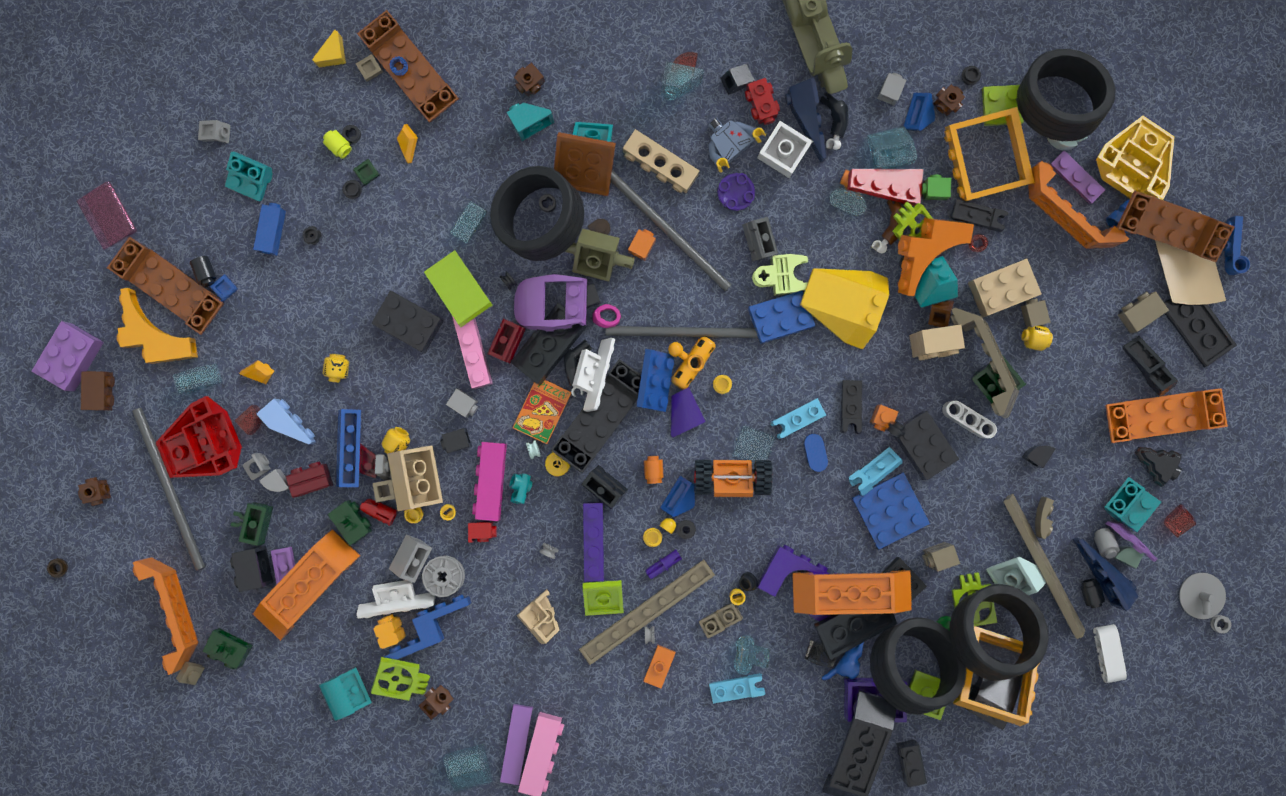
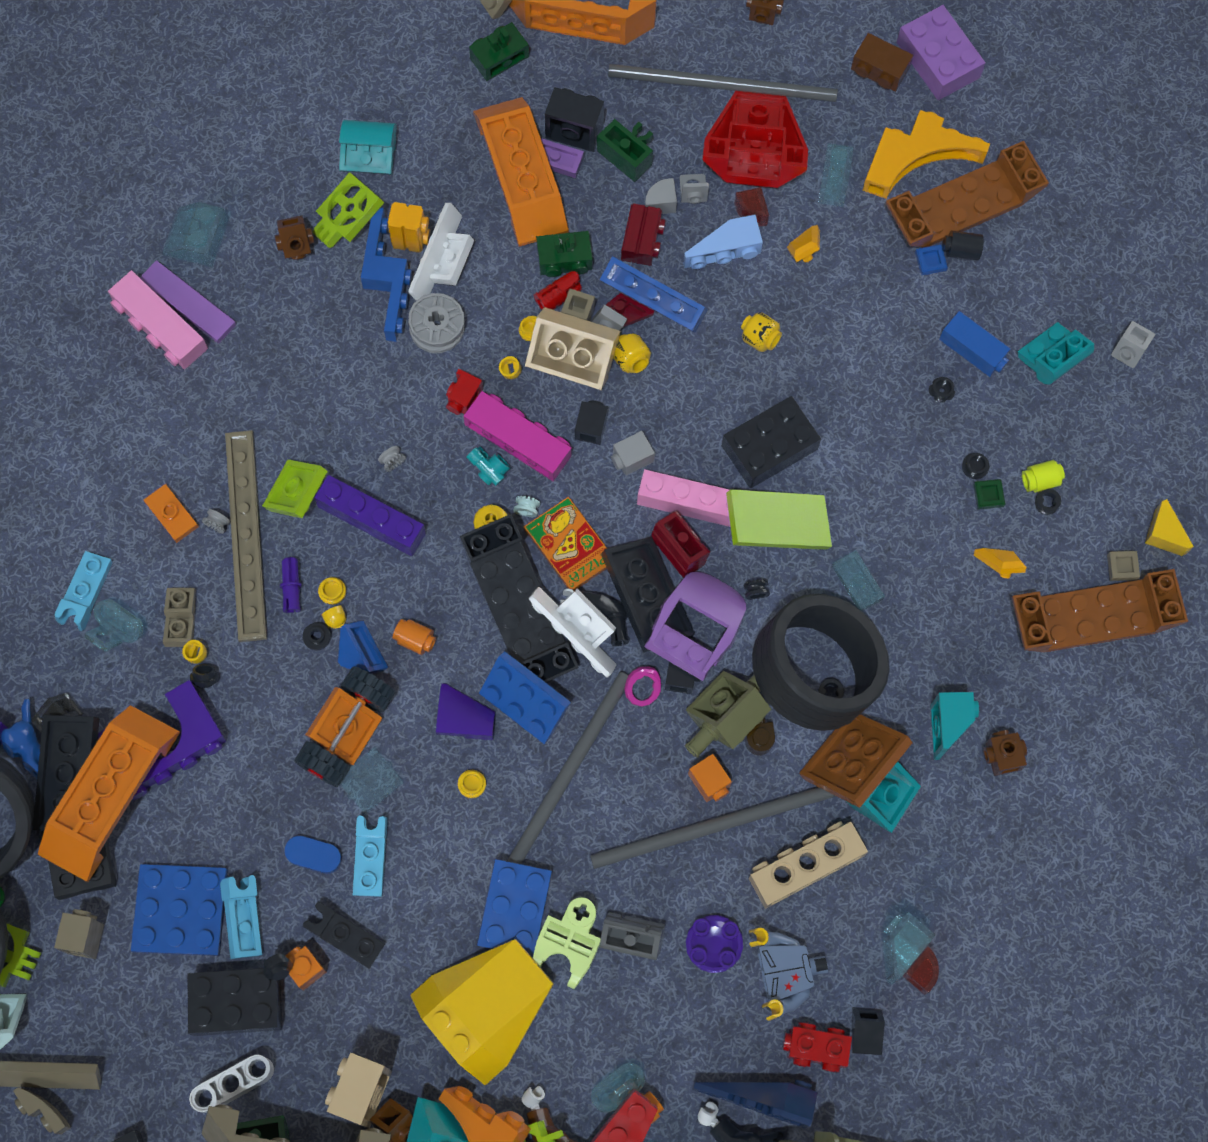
camera: 115 degrees right, 15 degrees down
(106, 215) = (1091, 177): clear pink piece -> none
(398, 59) = (1101, 593): blue bush -> none
(410, 558) = (480, 295): light grey brick -> none
(539, 618) = (317, 406): tan slope -> none
(604, 487) = (428, 563): black brick -> none
(700, 353) = (512, 746): light orange piece -> none
(784, 149) = (735, 1037): white brick -> none

